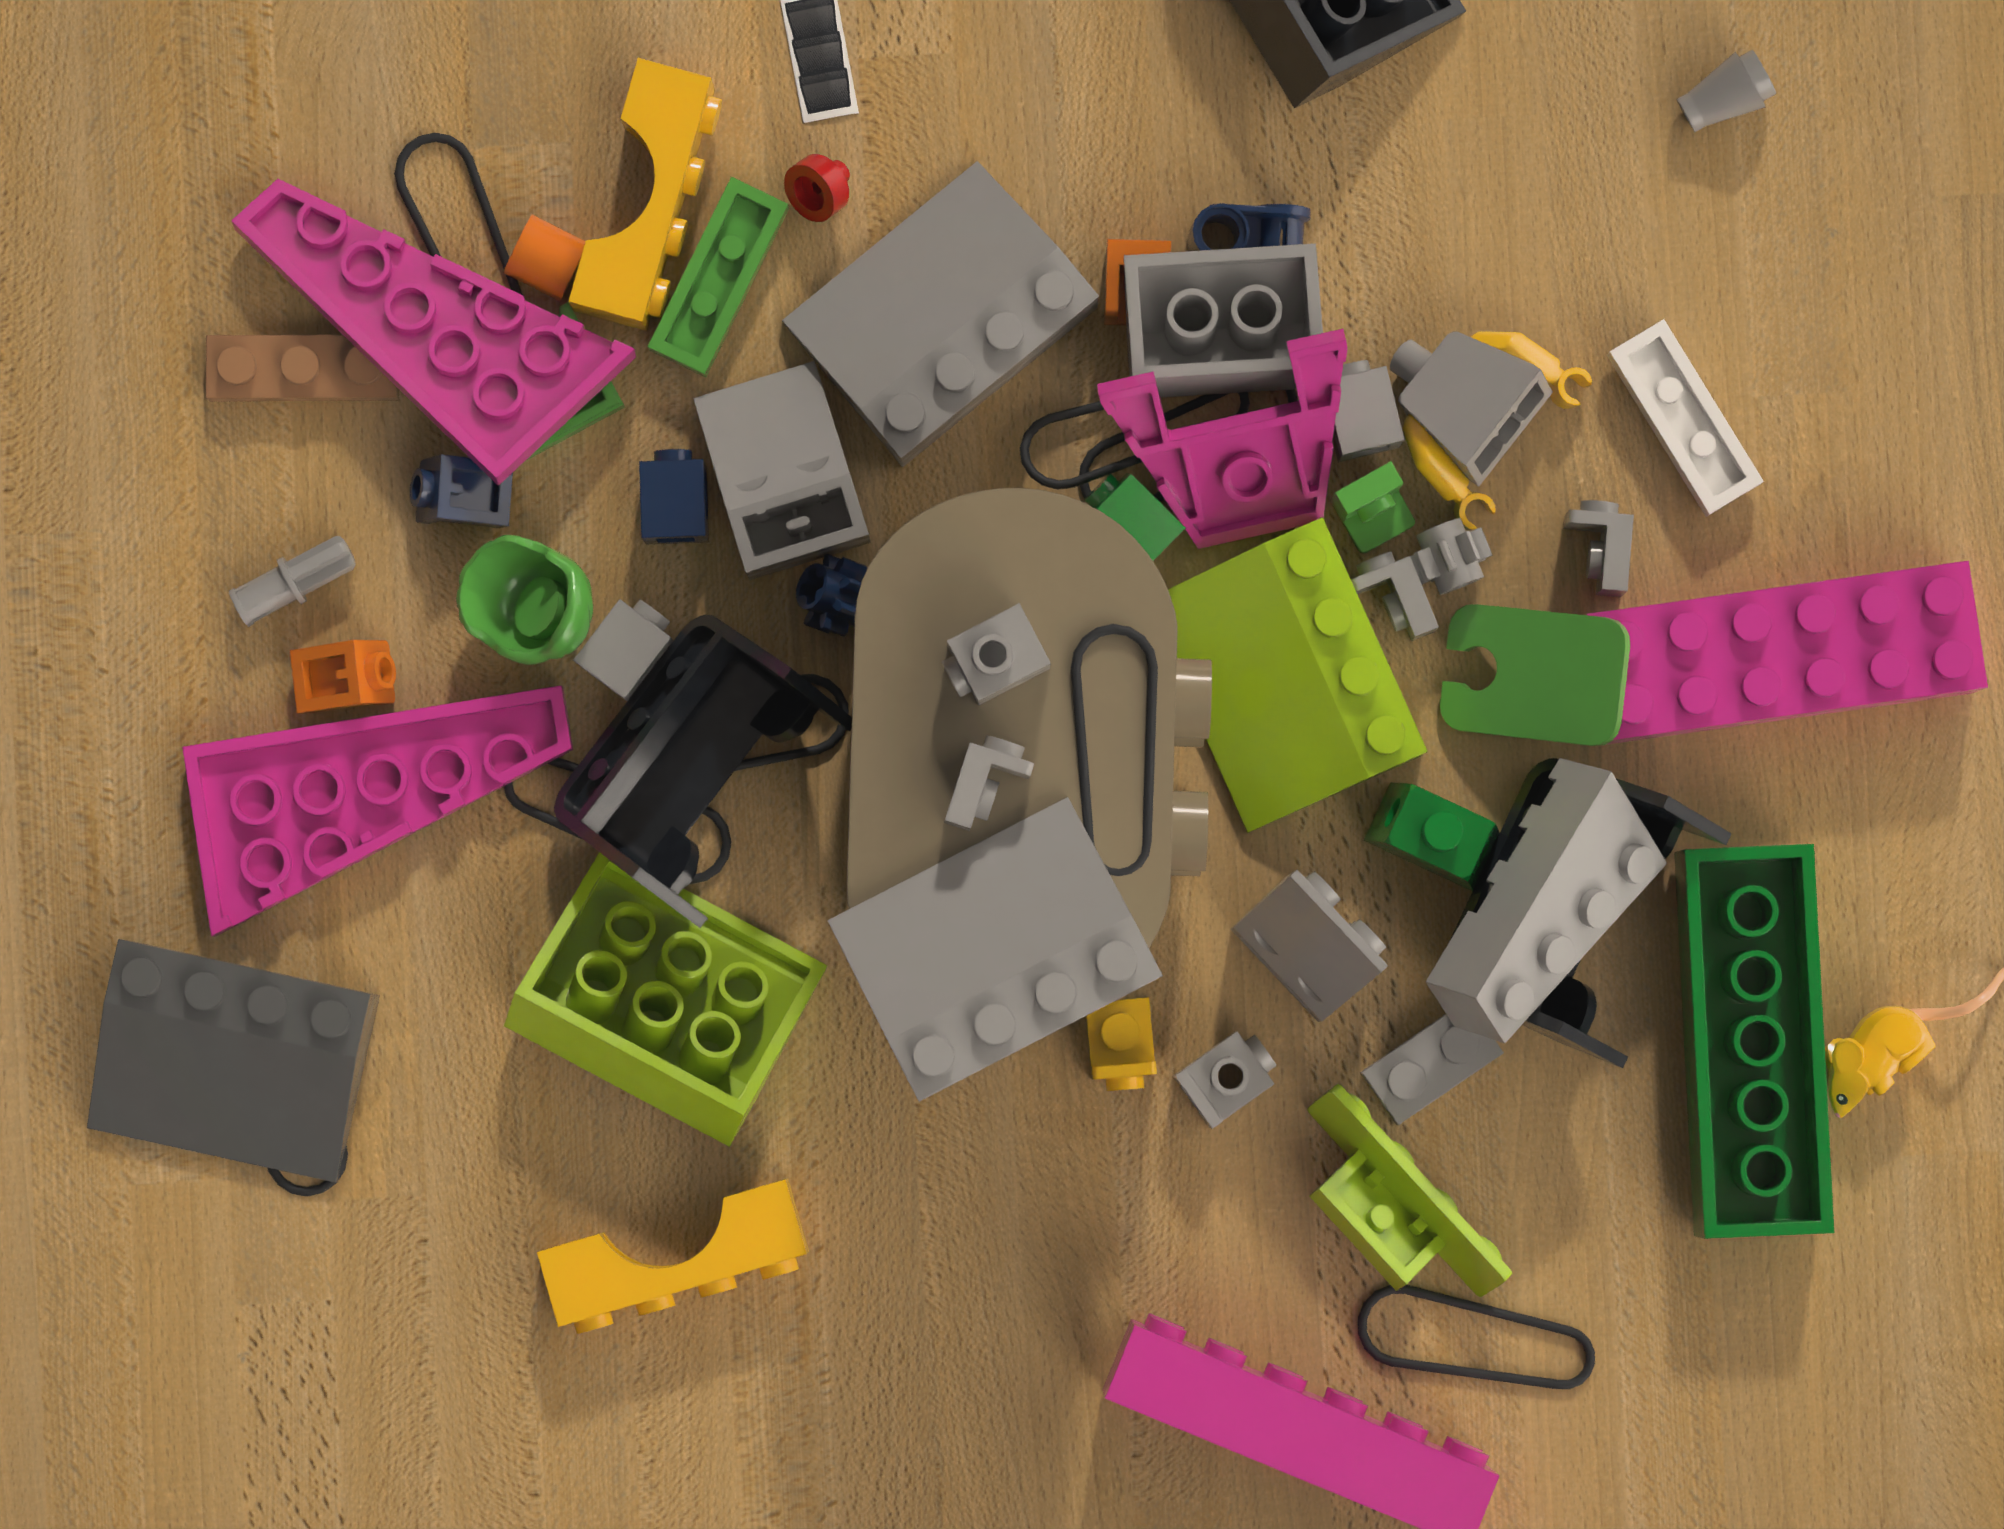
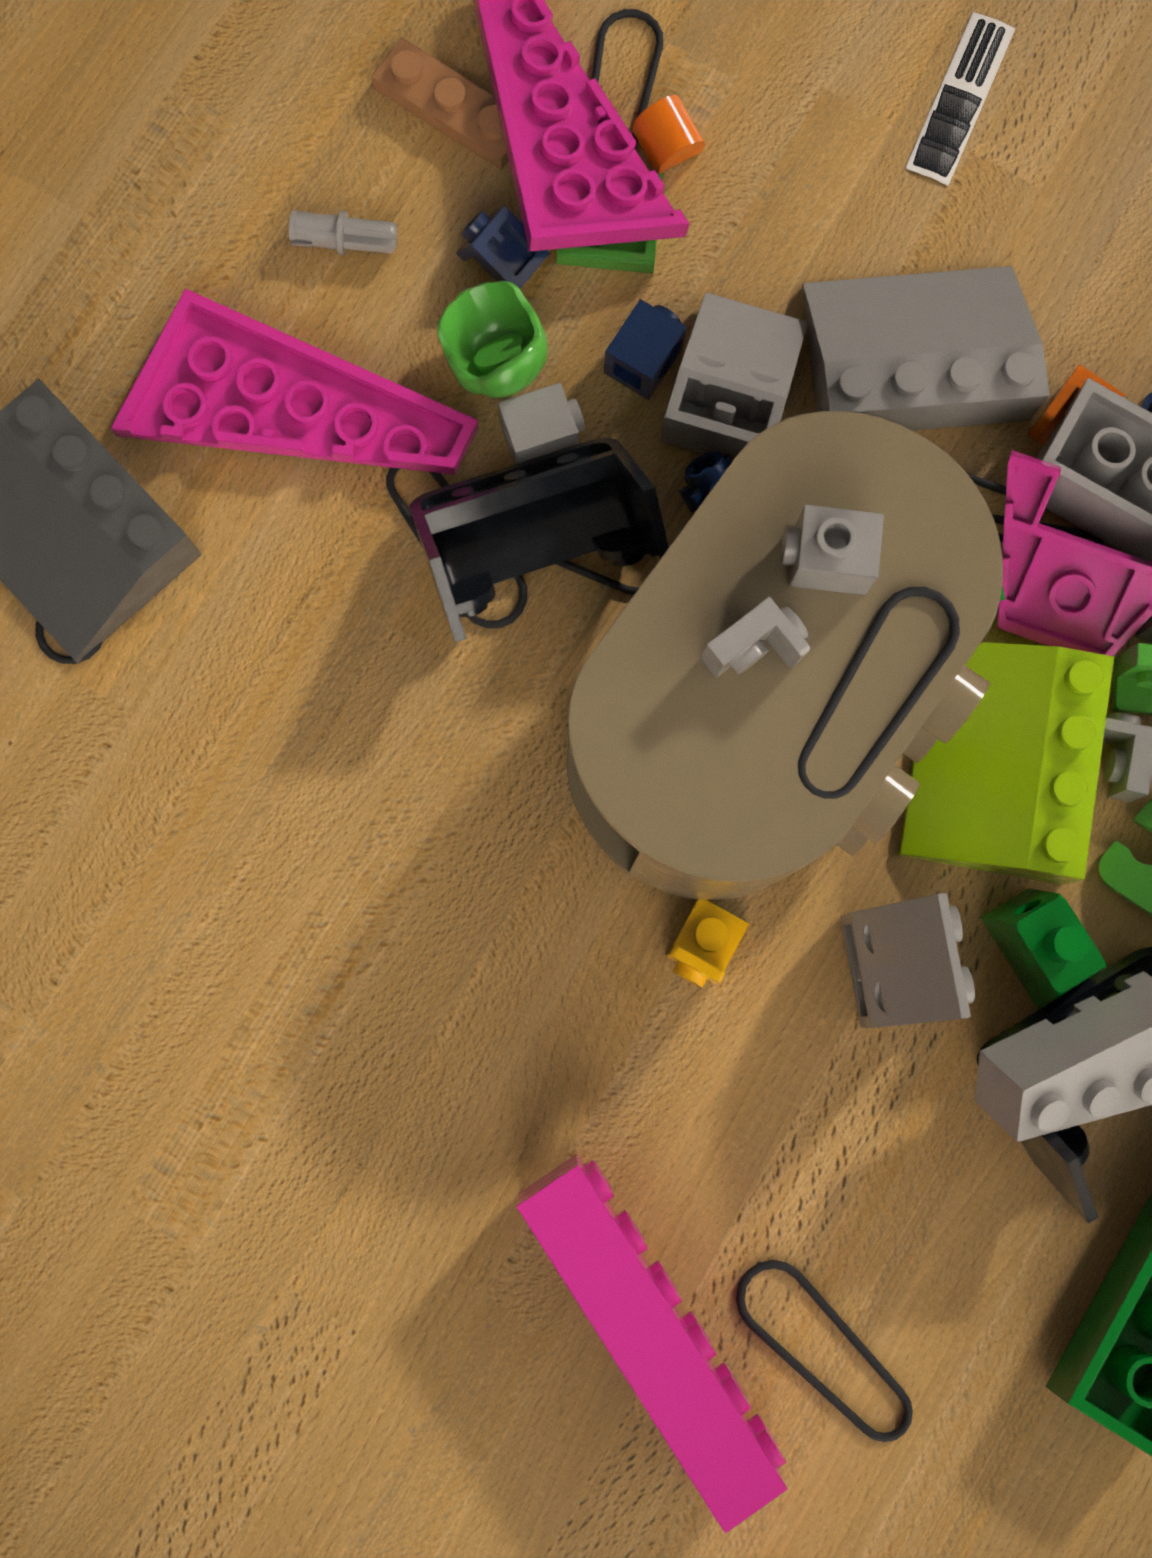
camera: 30 degrees right, 5 degrees down
(343, 675) = (332, 315): orange bracket -> none
(595, 1277) = (208, 852): yellow arch -> none
(624, 272) = (718, 173): yellow arch -> none
(663, 1004) = (394, 687): lime slope -> none
(718, 277) = (779, 223): bright green plate -> none
(817, 187) = (889, 206): red tile -> none
(994, 949) = (676, 785): light grey slope -> none
(1201, 1081) = (747, 1028): light grey brick -> none
(1392, 1207) = (832, 1208): lime bracket -> none
(1428, 1067) = (926, 1116): light grey plate -> none

